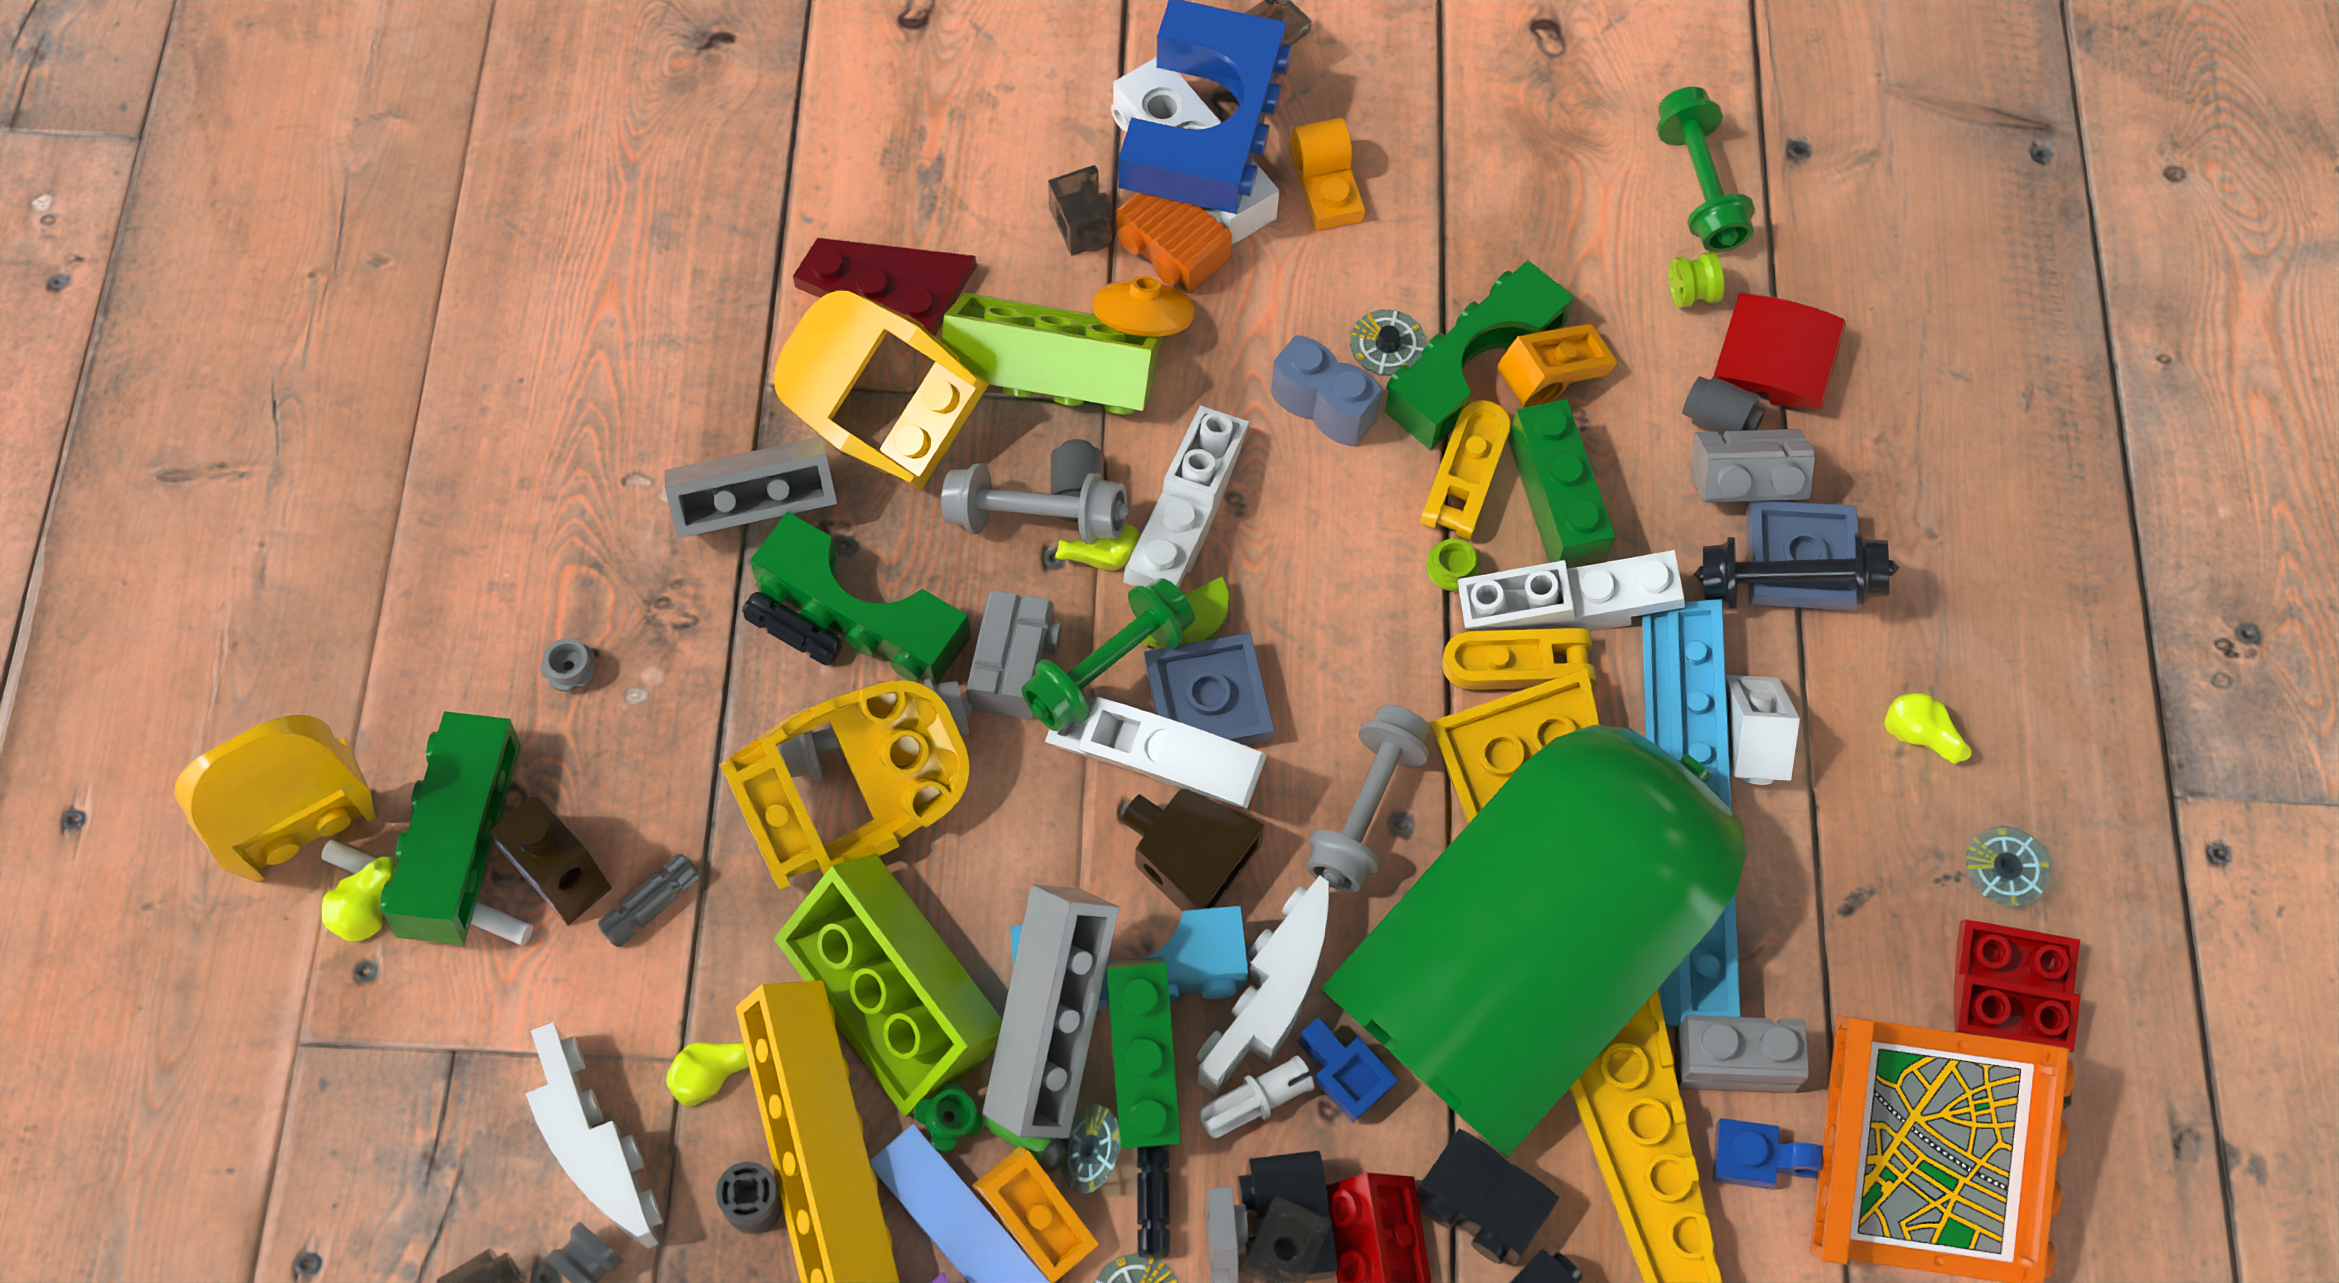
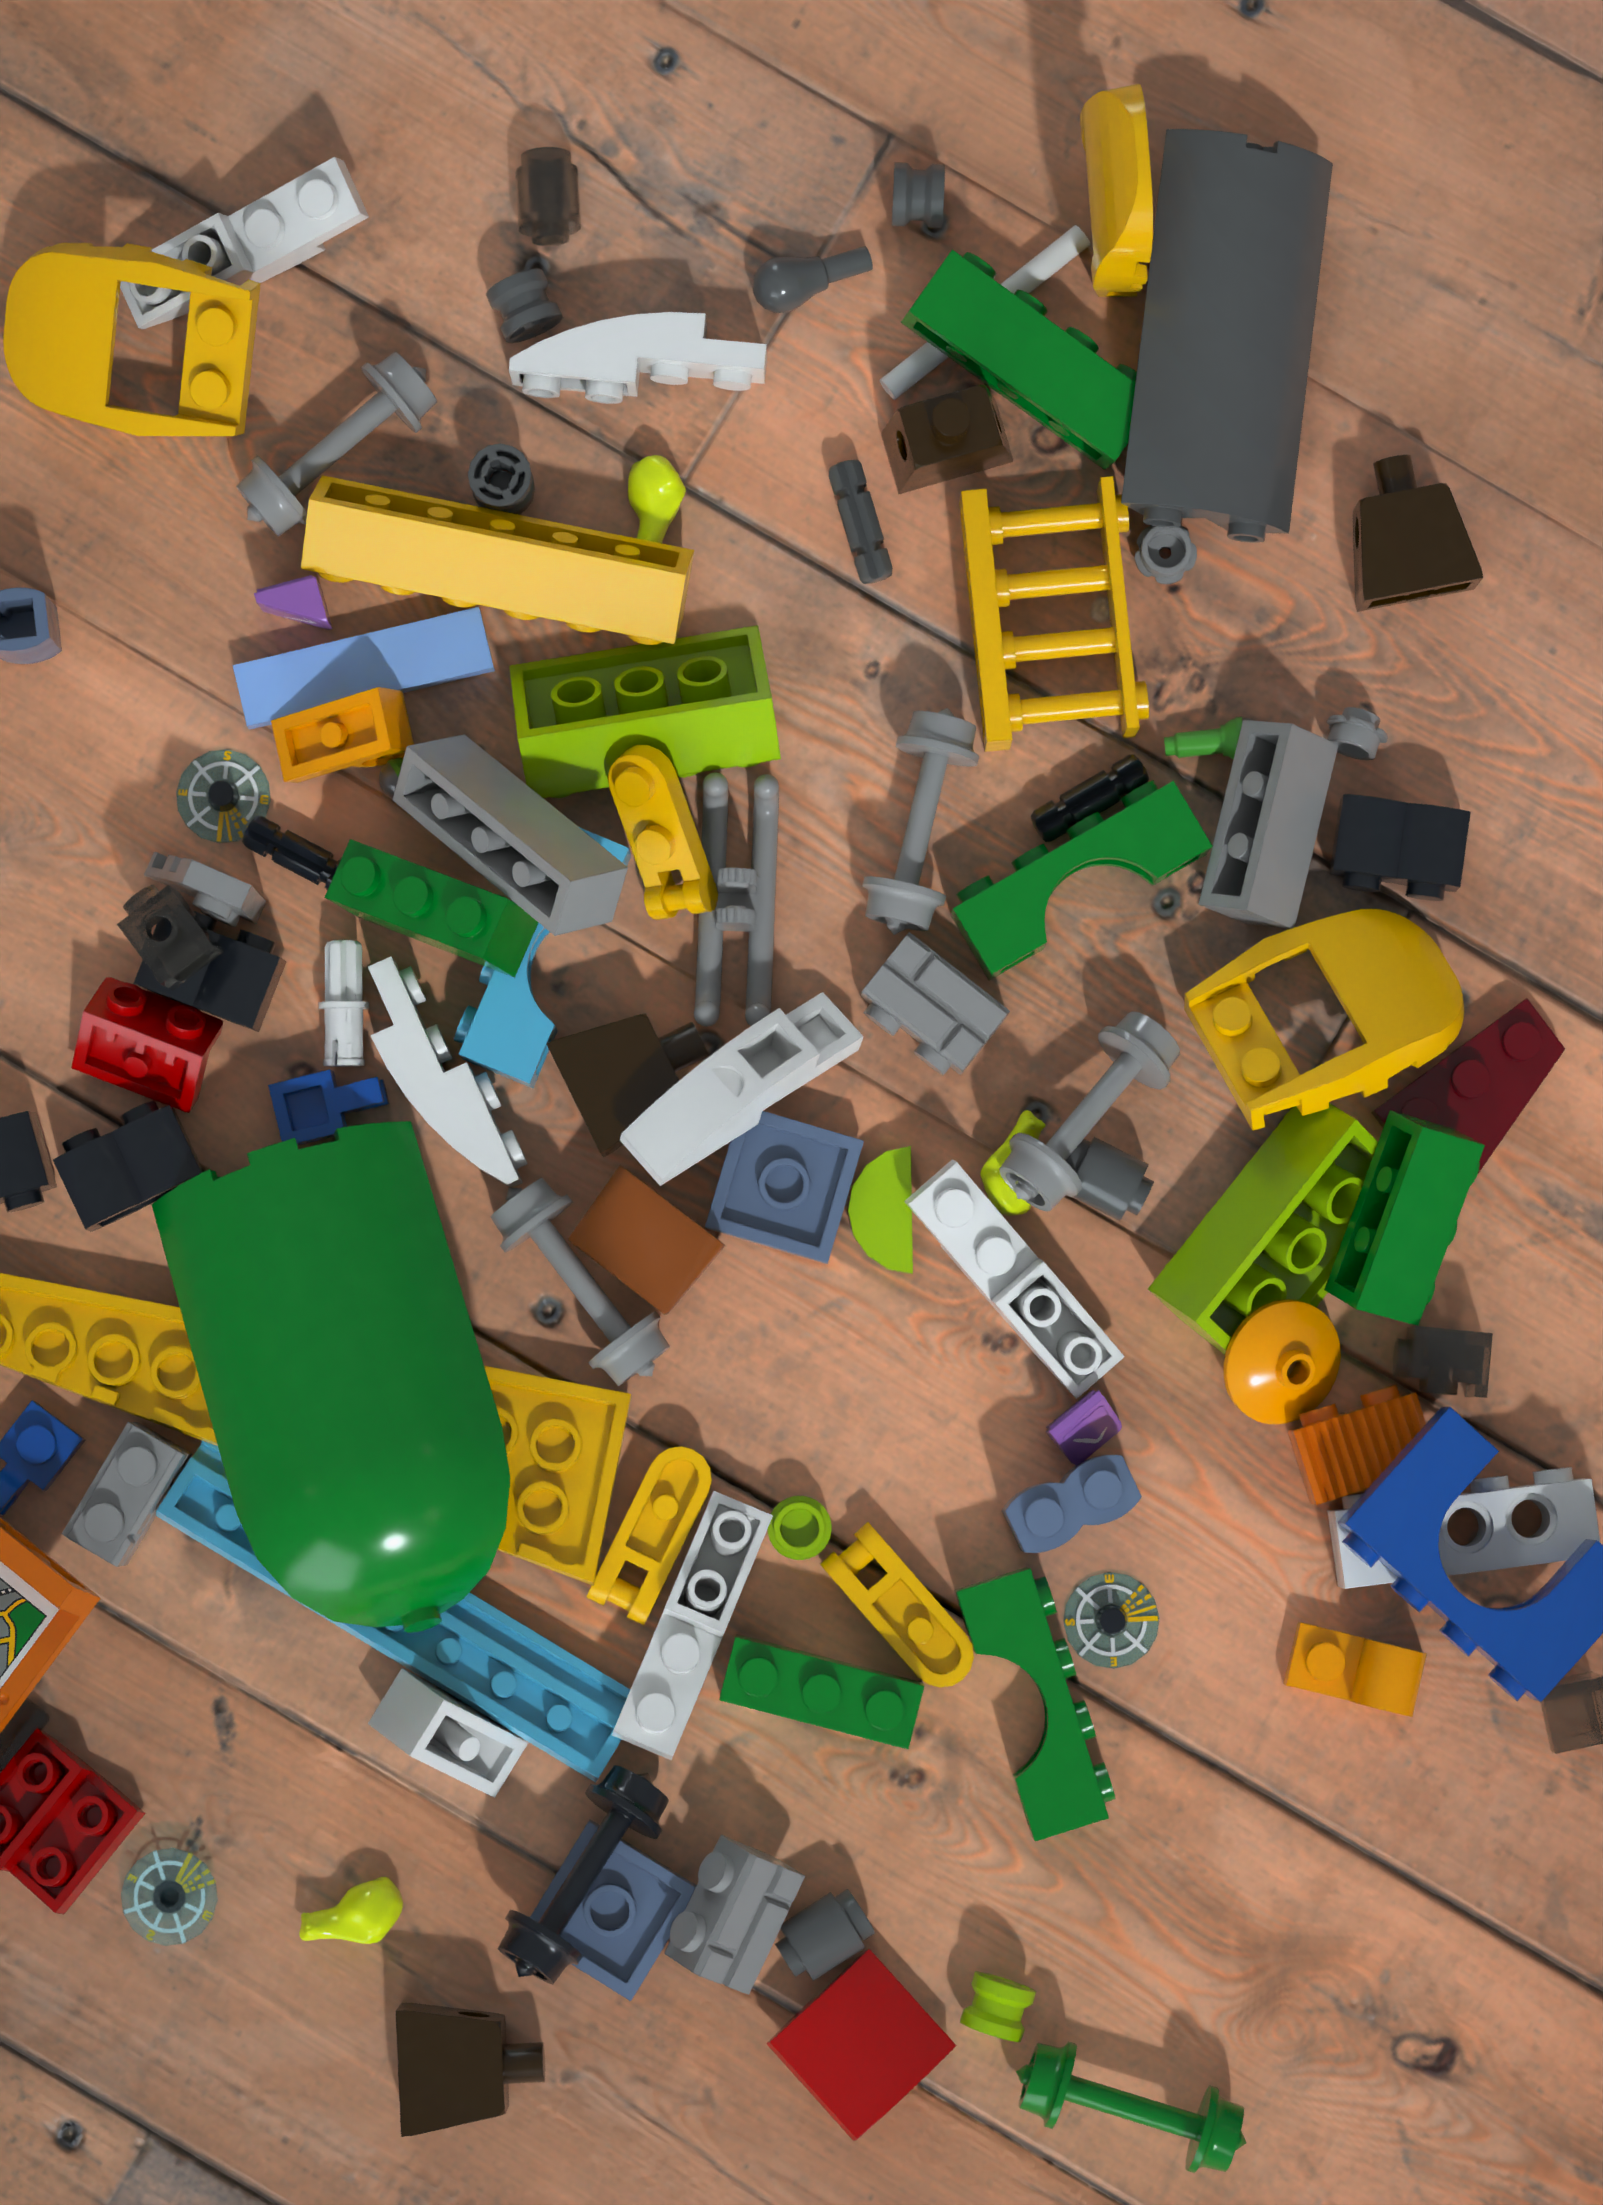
camera: 120 degrees right, 20 degrees up
(345, 985) = (918, 195): none -> dark grey wheel
(354, 905) = (1003, 240): neon yellow animal -> none
(387, 678) = (1227, 333): none -> dark grey cylinder
(466, 1053) = (791, 281): none -> dark grey piece
(480, 498) = (1409, 541): none -> dark brown torso
(648, 469) = (1356, 733): none -> light grey plate
(661, 771) = (1000, 650): none -> yellow fence
(697, 553) = (1206, 742): none -> bright green piece
(720, 401) = (1399, 845): none -> black brick
(901, 756) = (874, 828): yellow slope -> none
(961, 1106) = (473, 719): green plate -> none
(979, 912) = (661, 833): none -> yellow plate
(997, 267) = (1404, 1218): none -> green brick
(1010, 838) = (743, 902): none -> light grey piece
(1090, 1149) = (374, 818): clear light blue piece -> none
(1159, 613) = (843, 1011): green piece -> none
(1264, 419) = (1084, 1427): none -> medium lavender slope
(1310, 769) = (645, 1241): none -> dark orange piece
(1546, 362) = (975, 1783): light orange plate -> none
(1982, 599) = (457, 2066): none -> dark brown torso

